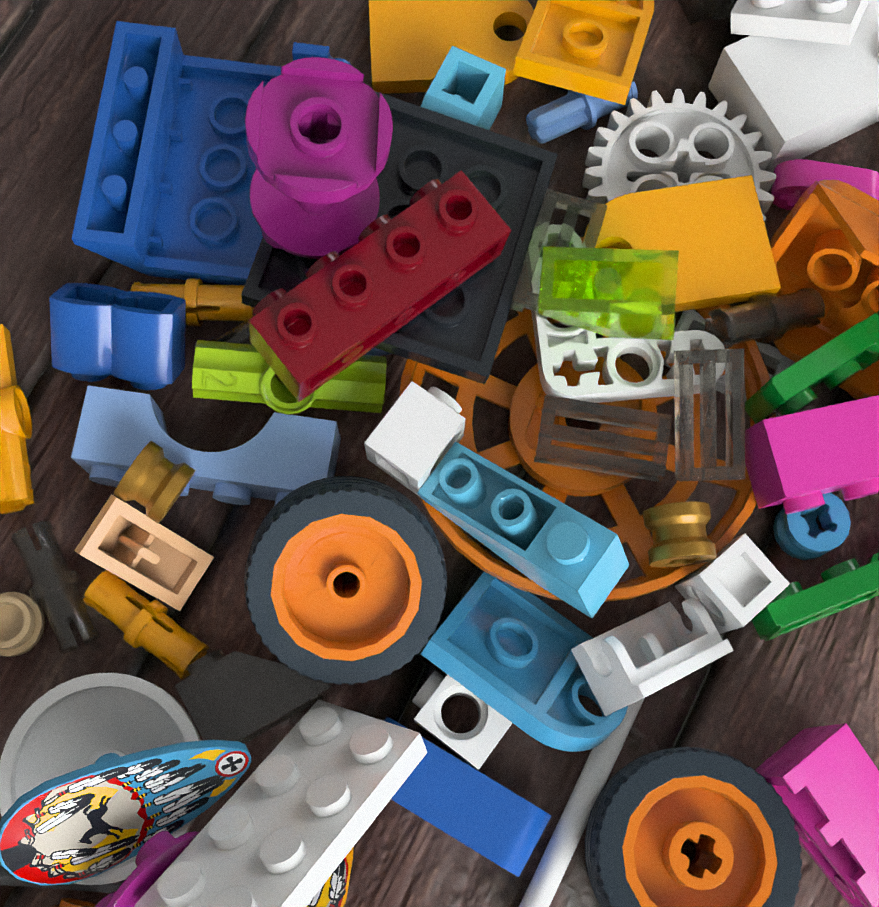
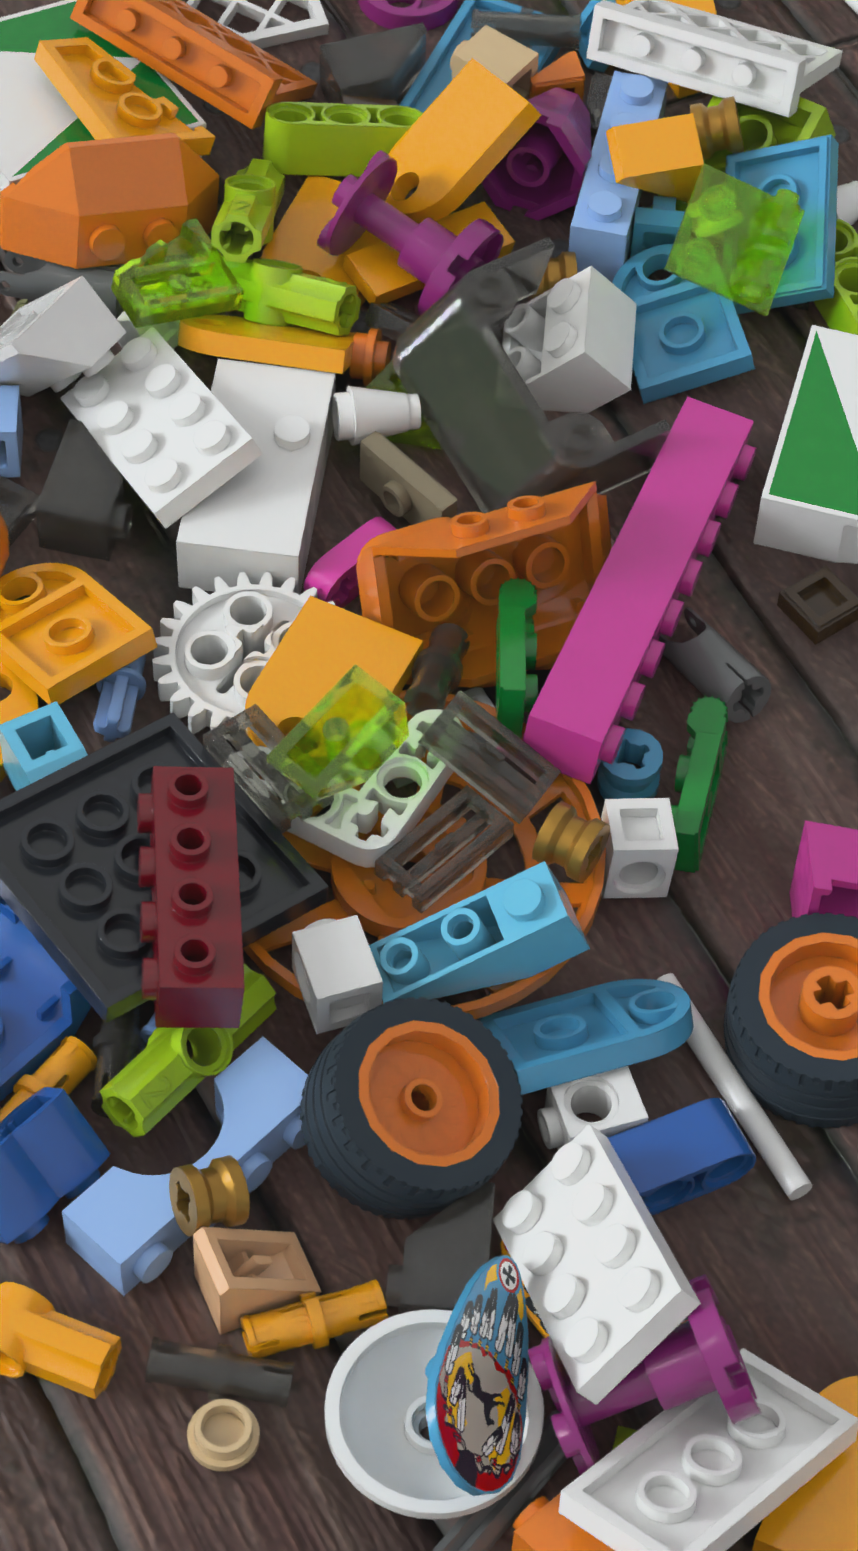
camera: 55 degrees left, 20 degrees down
(316, 155) = (74, 822): magenta piece -> none
(648, 654) = (648, 947): white hinge -> none

